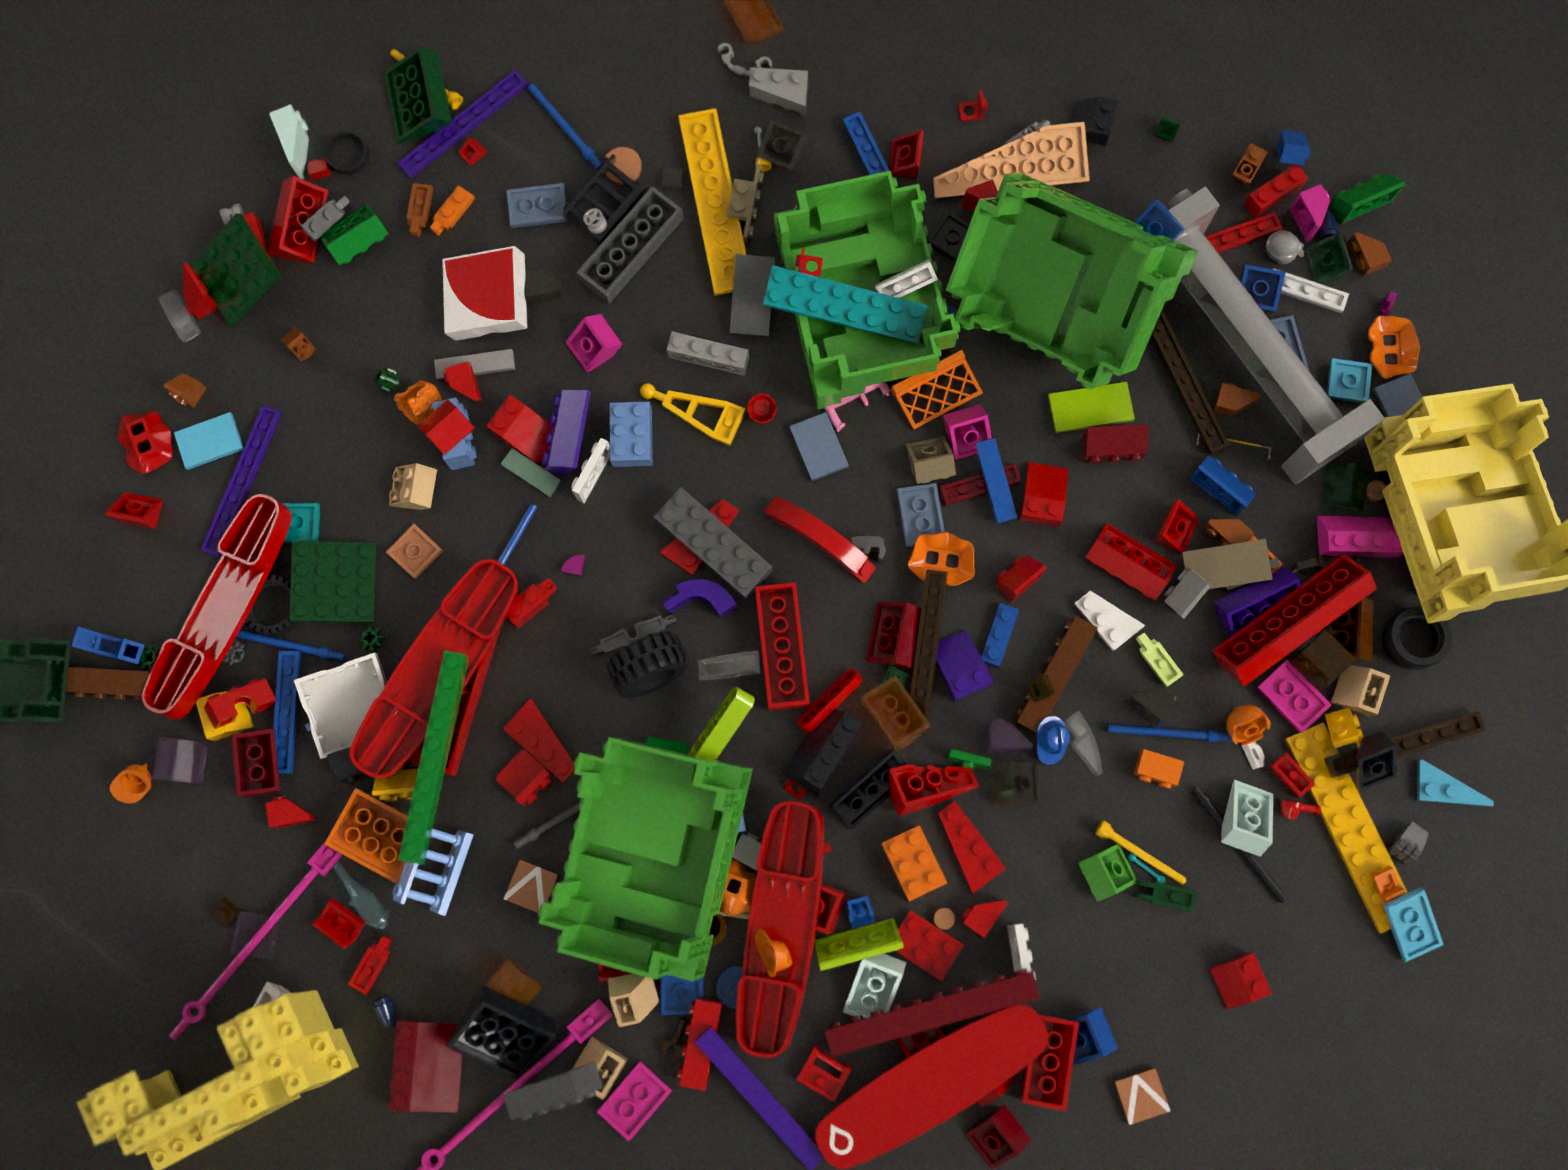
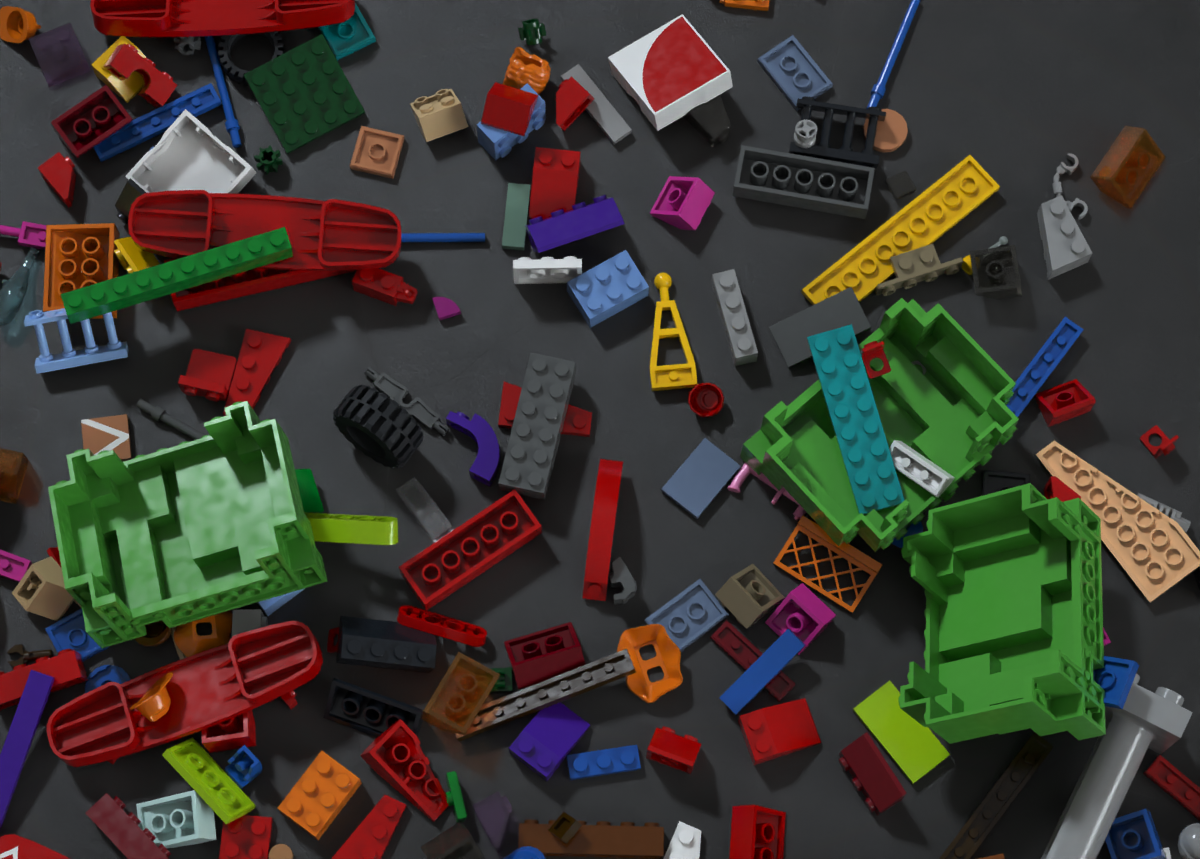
camera: 55 degrees right, 5 degrees down
(821, 1080) = (58, 816): red plate -> none

